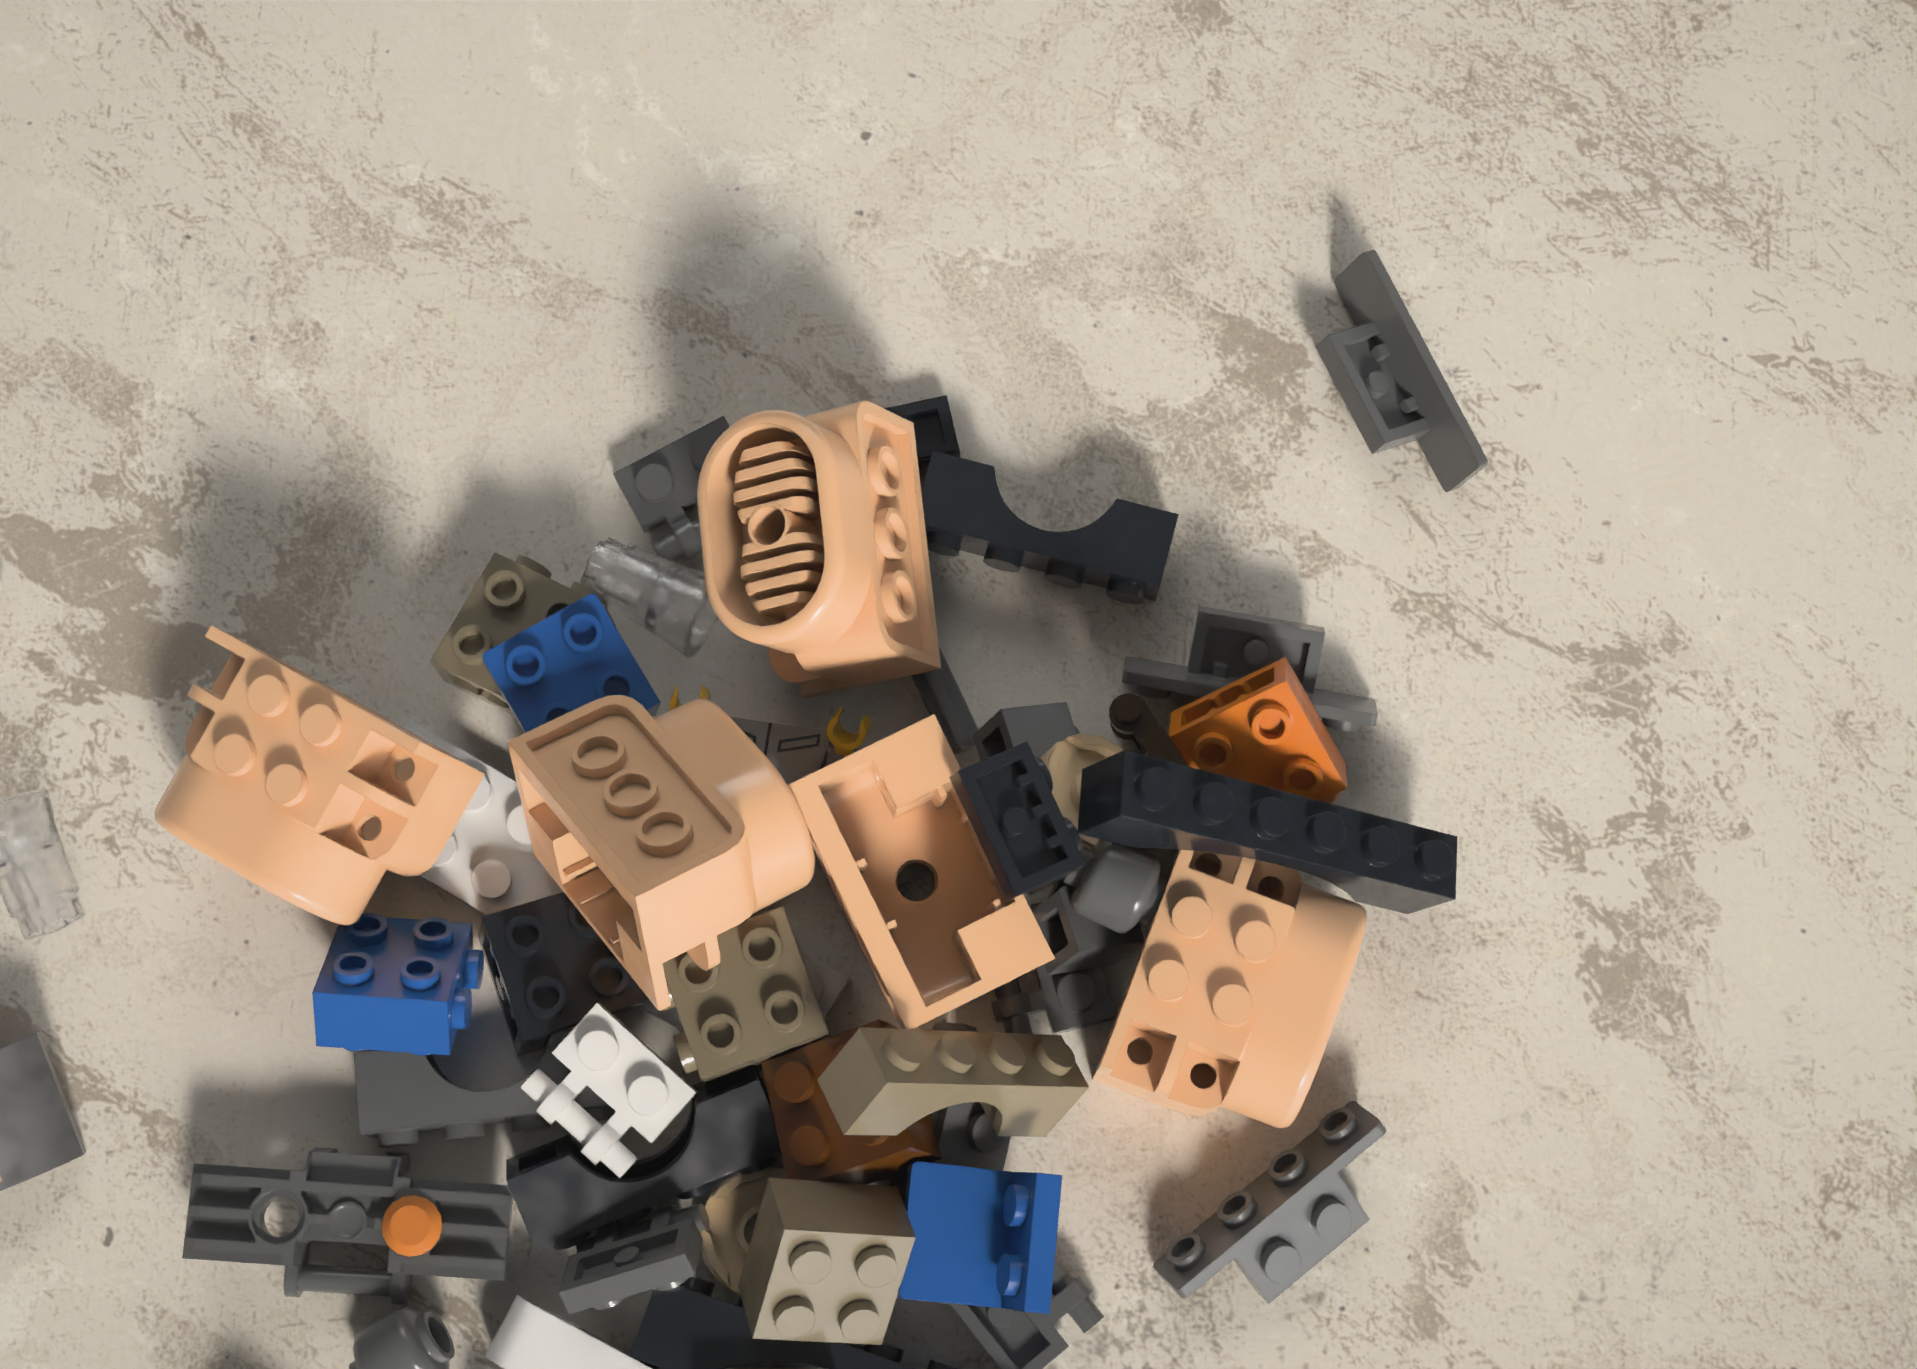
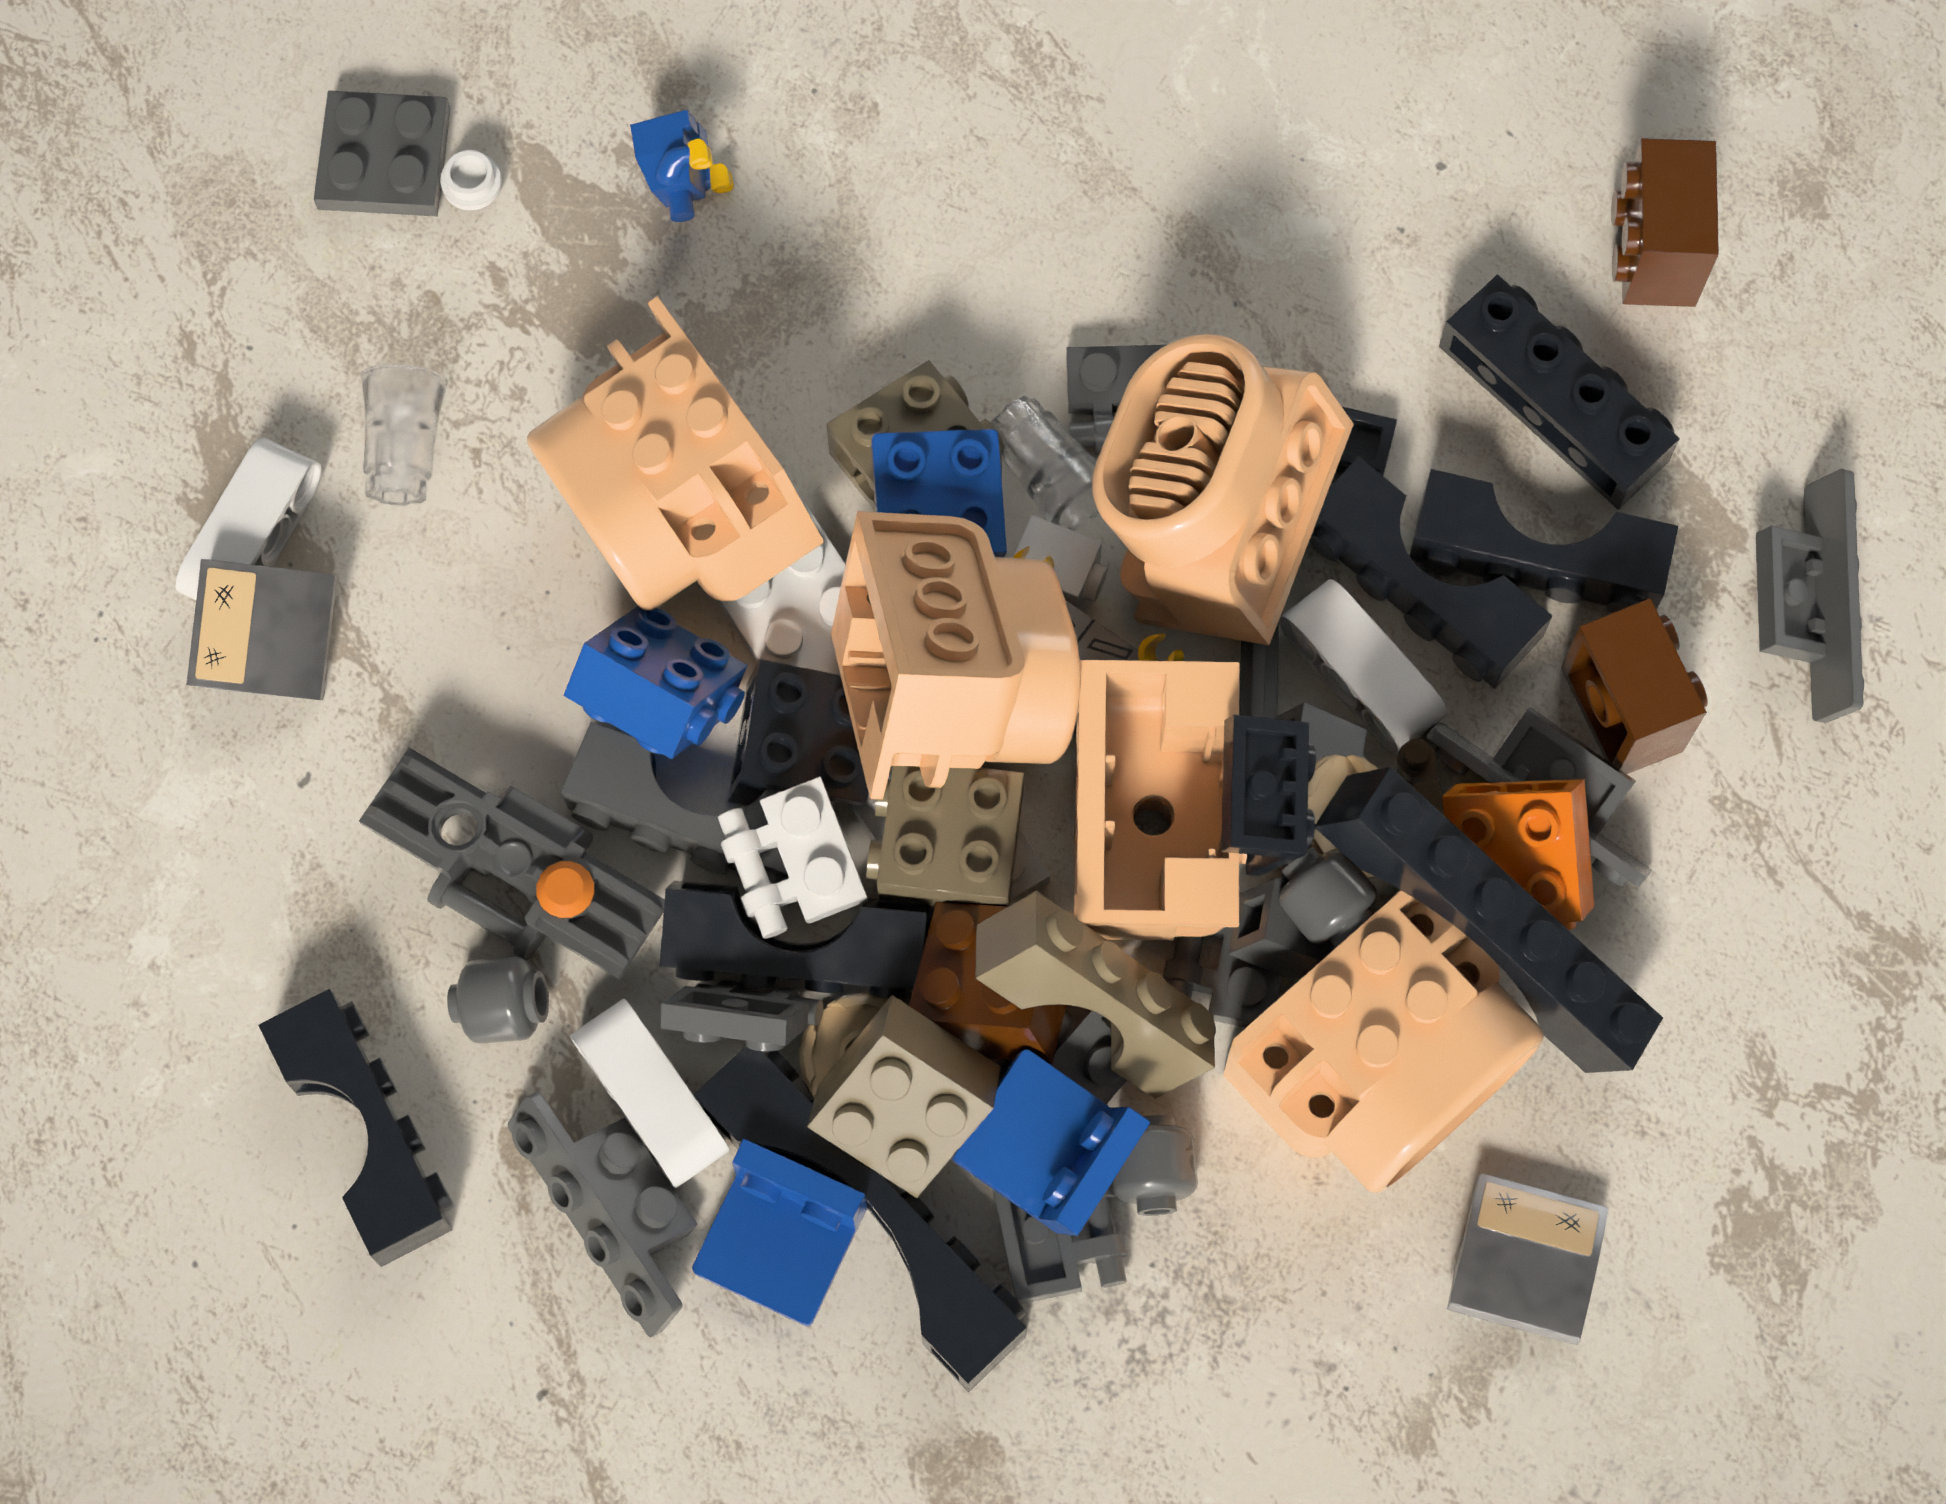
camera: 30 degrees right, 5 degrees down
(158, 473) = (678, 162): none -> blue piece
(720, 671) = (1074, 558): none -> white brick
(1031, 642) = (1363, 666): none -> white beam
(1059, 469) = (1468, 533): none -> black arch
(1077, 298) = (1559, 390): none -> black brick
(1086, 1198) = (1158, 1168): none -> dark grey head
(1099, 96) = (1666, 222): none -> reddish brown brick
(1283, 544) = (1634, 687): none -> reddish brown brick
(1284, 1216) = (1336, 1278): dark grey bracket -> none
(1443, 1111) = (1528, 1259): none -> flat silver slope

